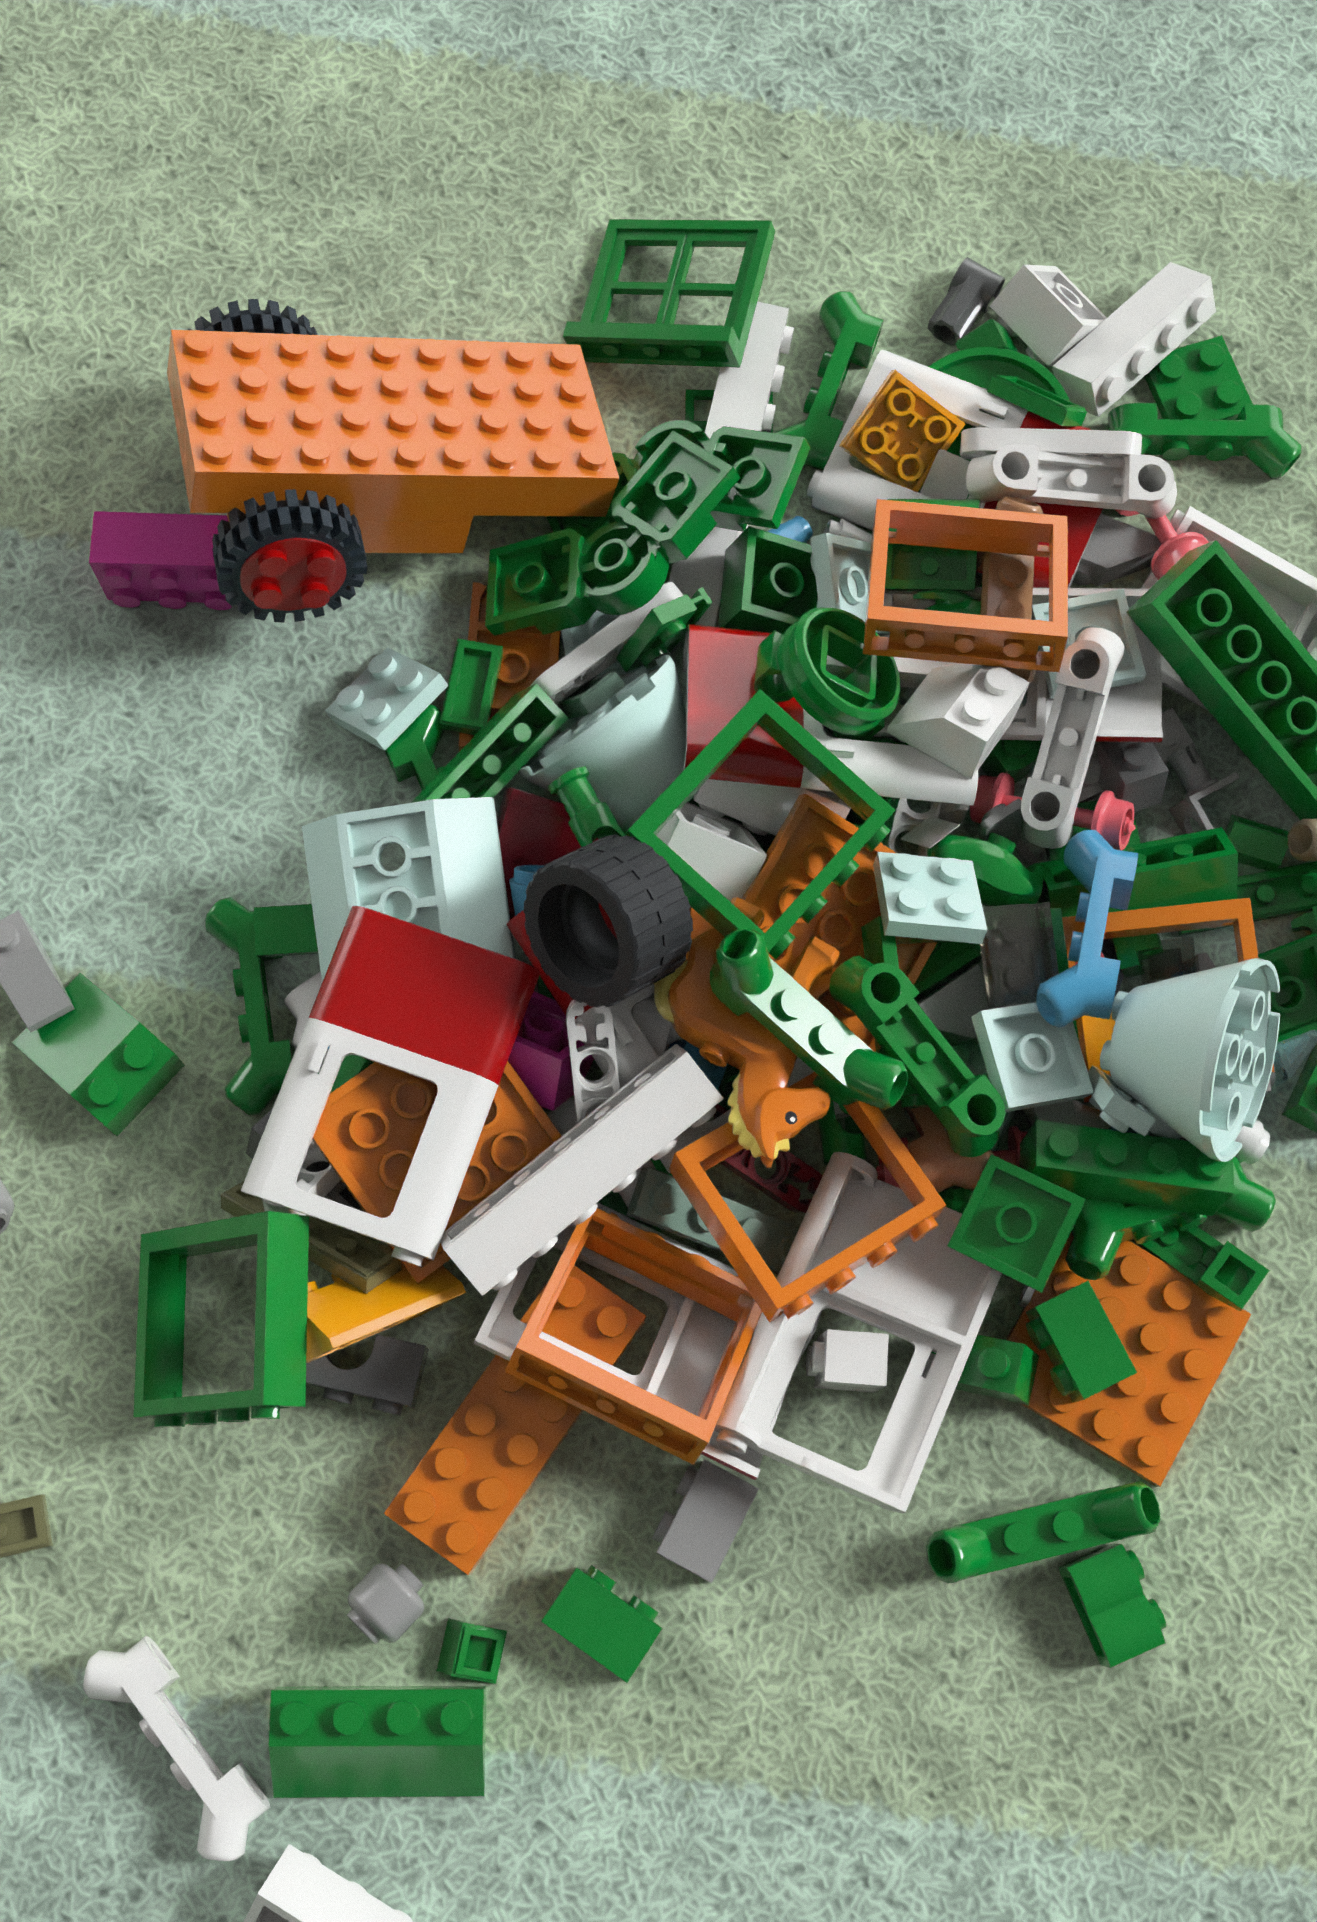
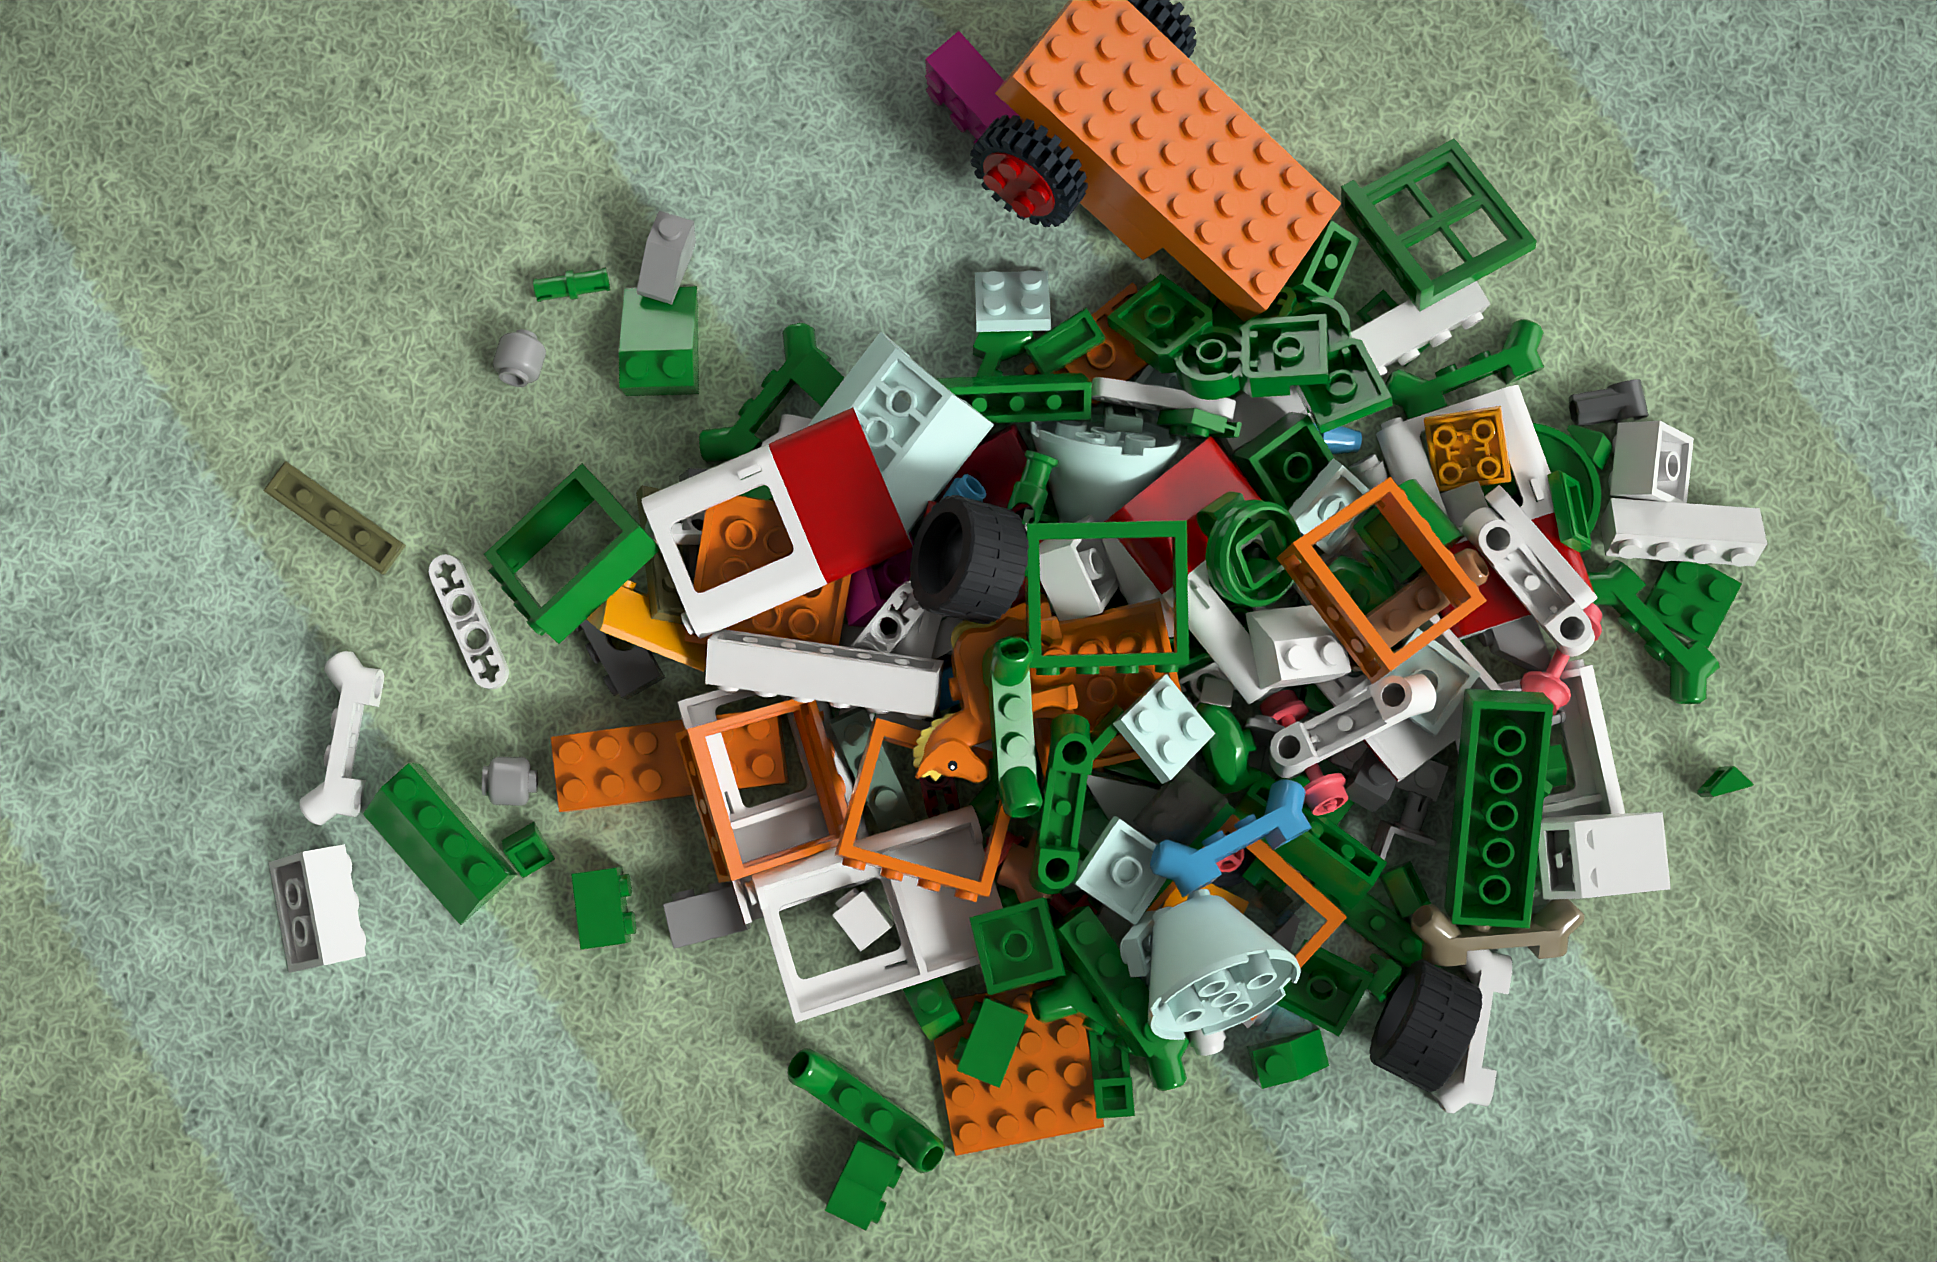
camera: 55 degrees right, 10 degrees up
(183, 1504) = (466, 623): none -> white beam
(620, 405) = (1324, 263): none -> green brick

